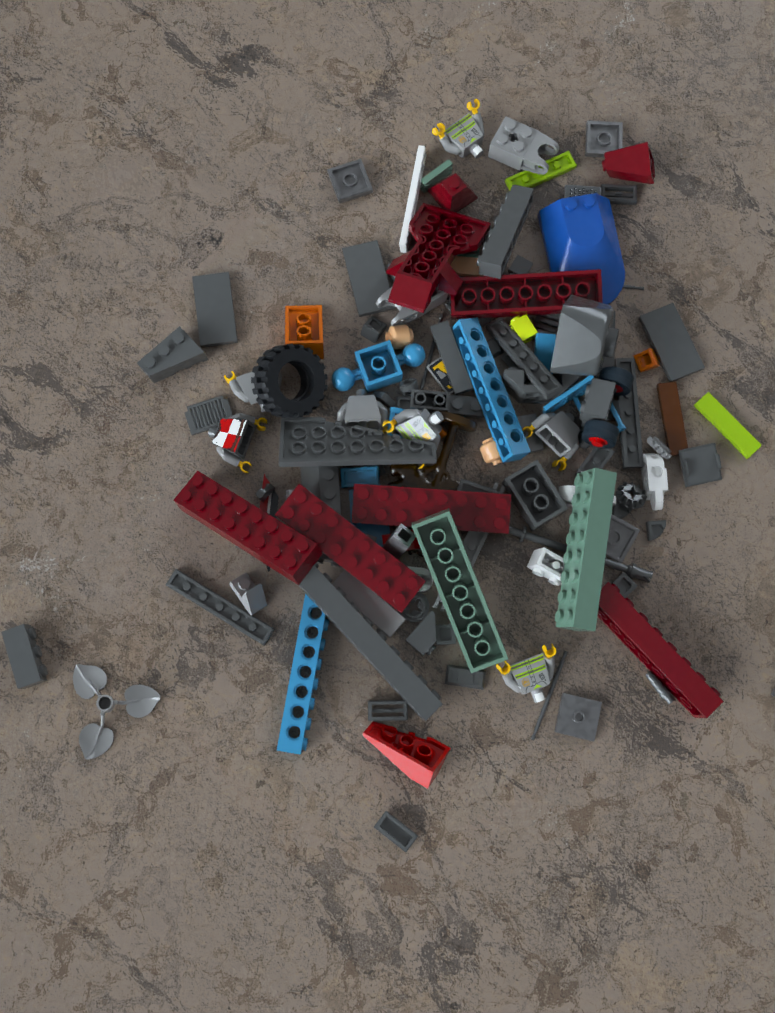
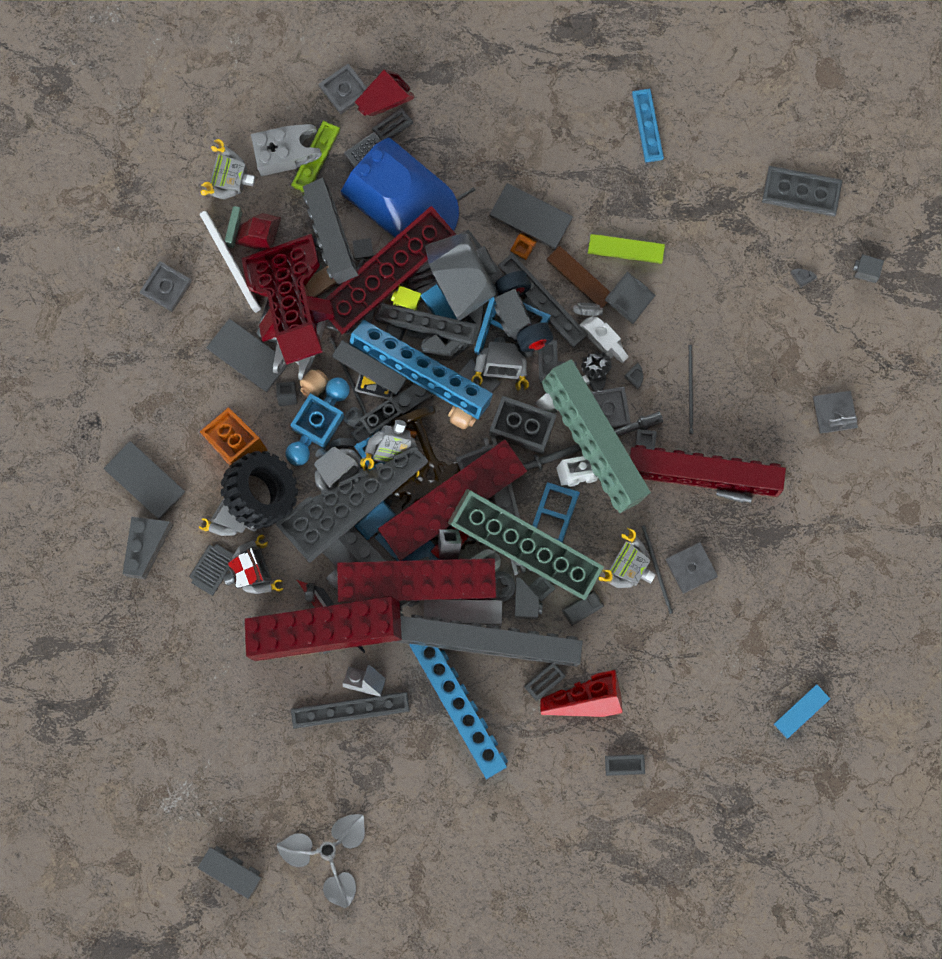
camera: 35 degrees left, 0 degrees up
(495, 573) = (541, 510): none -> dark azure window
(575, 909) = (801, 711): none -> dark azure tile
(691, 575) = (690, 390): none -> dark grey piece

